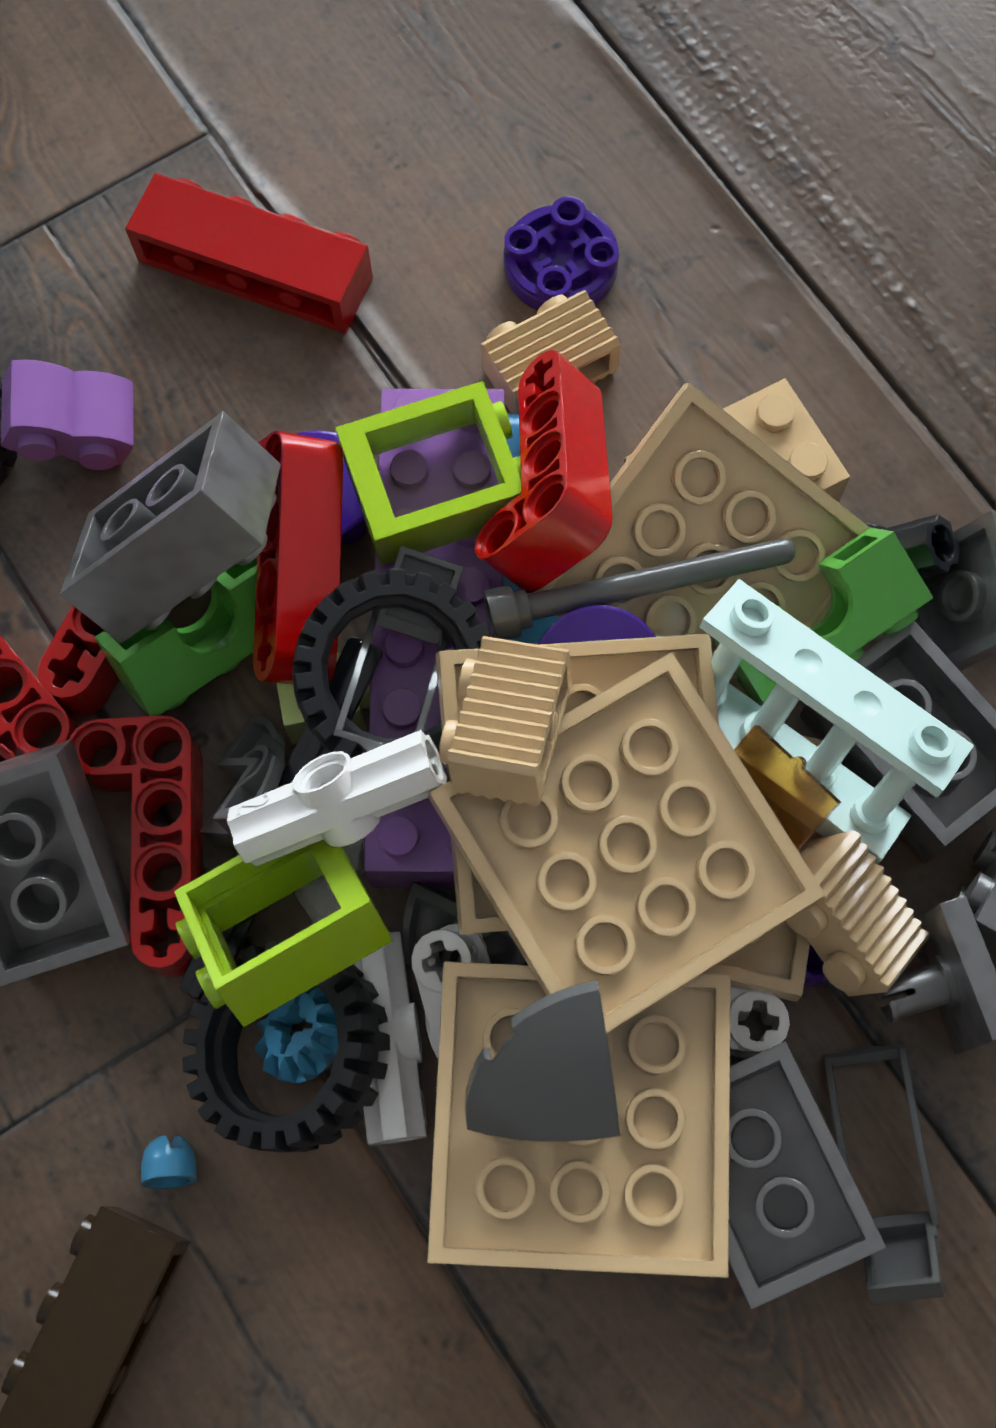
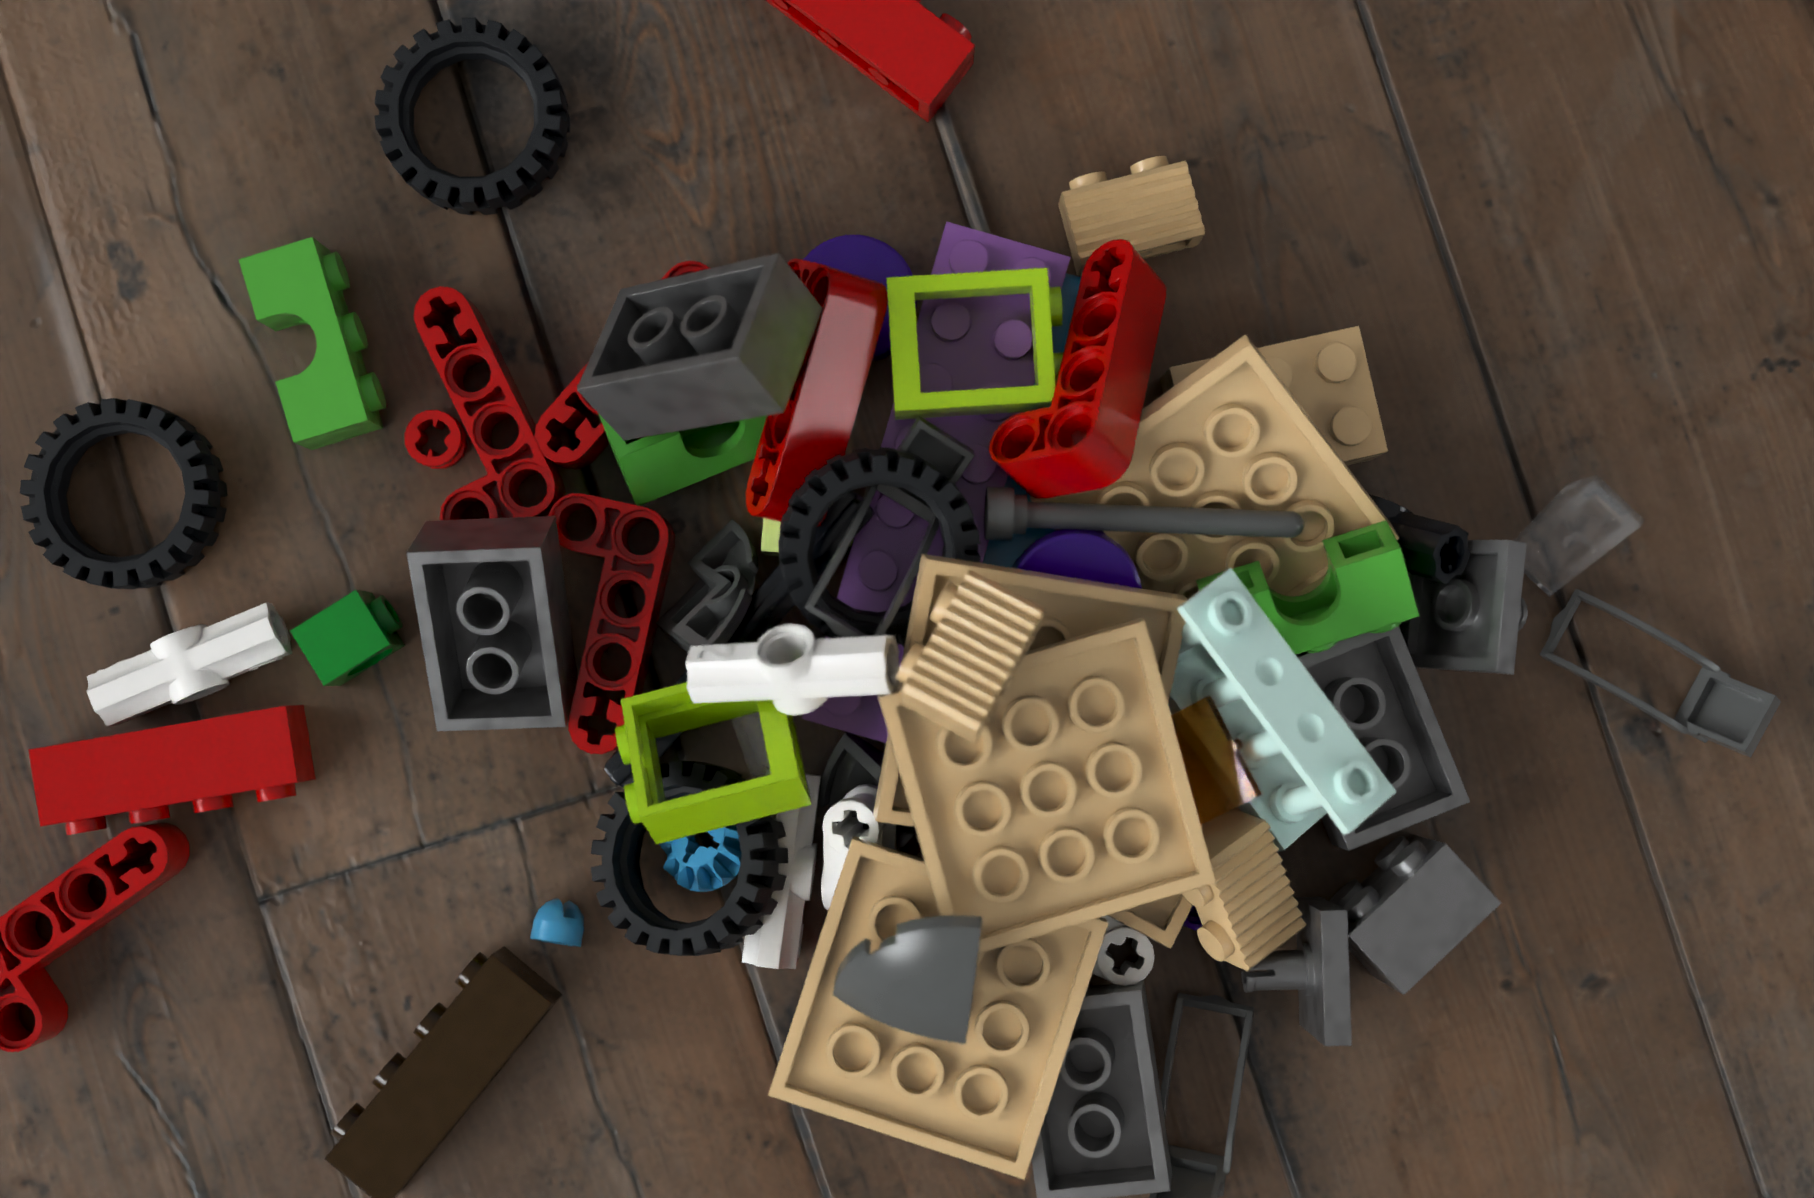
camera: 10 degrees right, 15 degrees up
(67, 414) = (620, 151): medium lavender brick -> none
(560, 253) = (1176, 100): dark purple tile -> none

